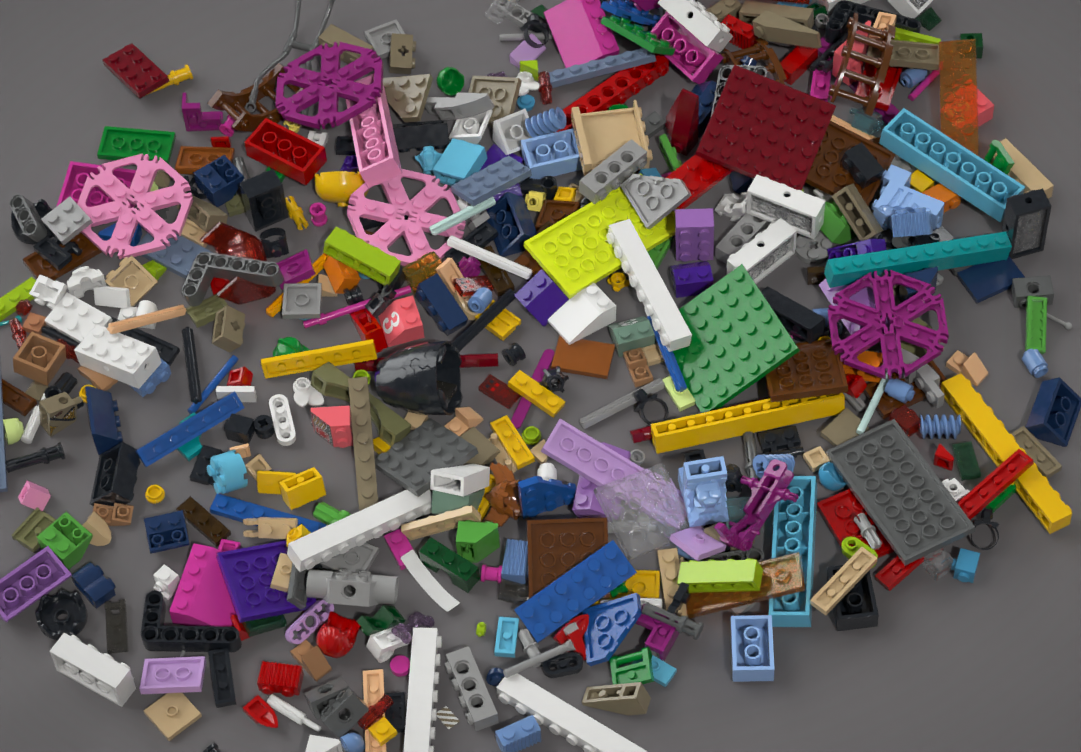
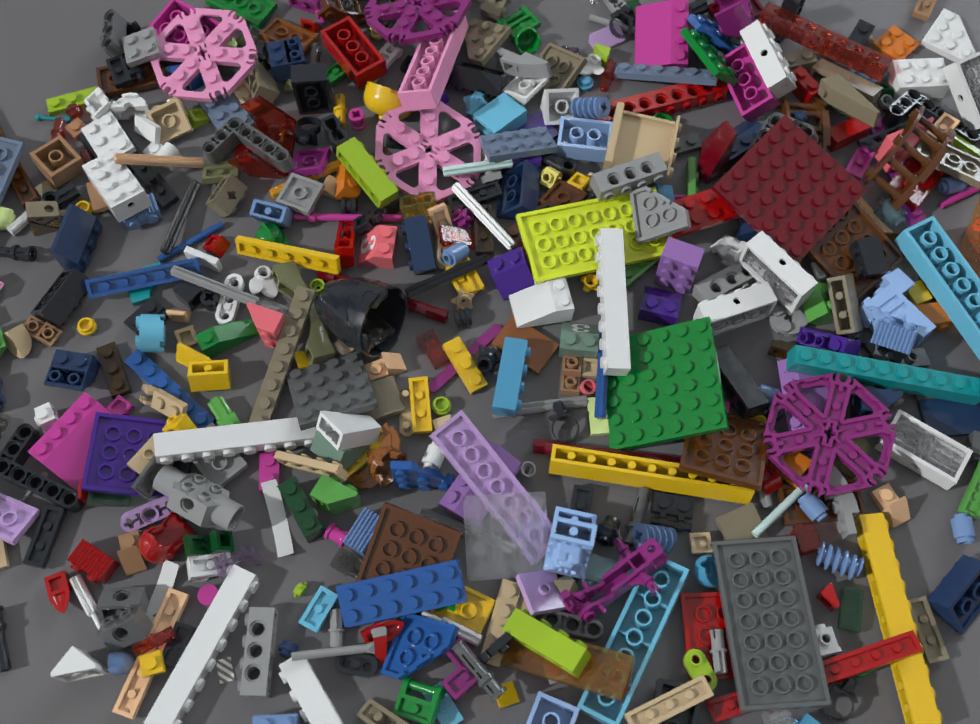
camera: 20 degrees right, 10 degrees up
(265, 410) = (213, 285): none -> light grey axle
(282, 327) = (271, 213): none -> medium blue brick
(297, 452) = (226, 336): none -> green slope
(306, 236) = (333, 132): none -> black brick
(355, 670) = (165, 581): none -> white sticker
(440, 62) = (527, 20): none -> green plate
(502, 340) = (458, 300): none -> tan plate
(584, 385) = (509, 378): none -> dark azure brick
(658, 370) = (589, 384): none -> coral hinge
(705, 640) = (509, 697): none -> yellow slope
(978, 310) = (927, 450): none -> brick

